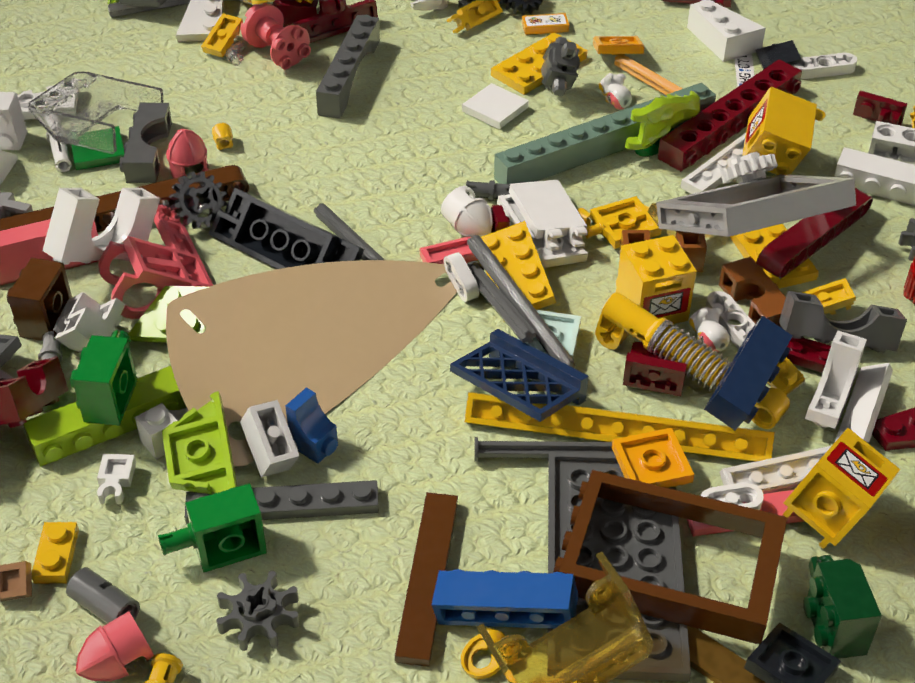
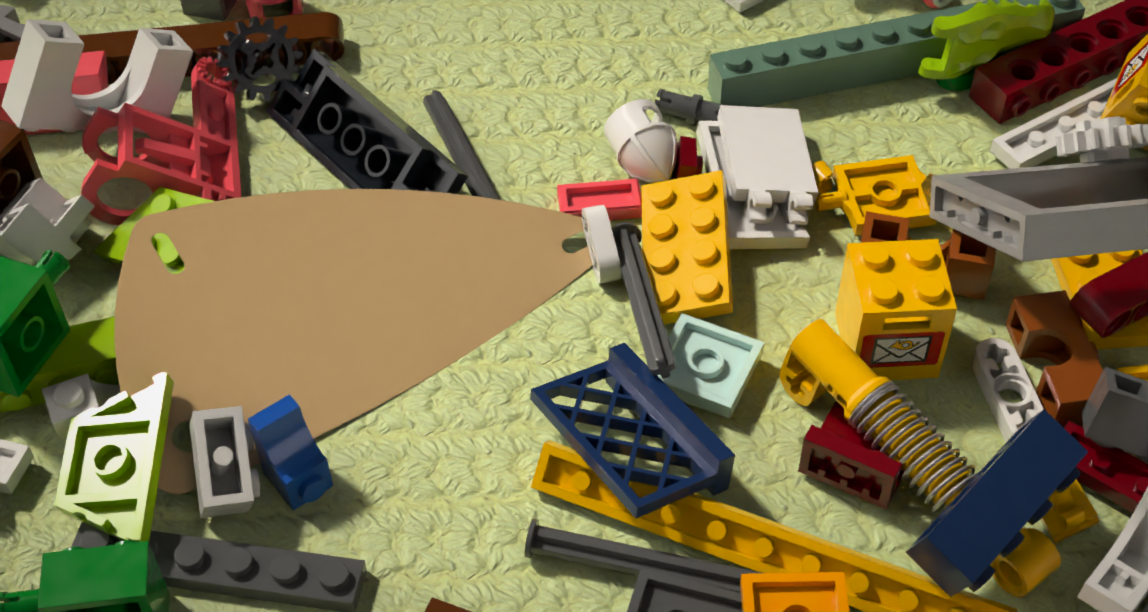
camera: 15 degrees right, 5 degrees up
(519, 301) = (673, 309): dark grey axle -> none
(708, 329) = (963, 402): white animal -> none

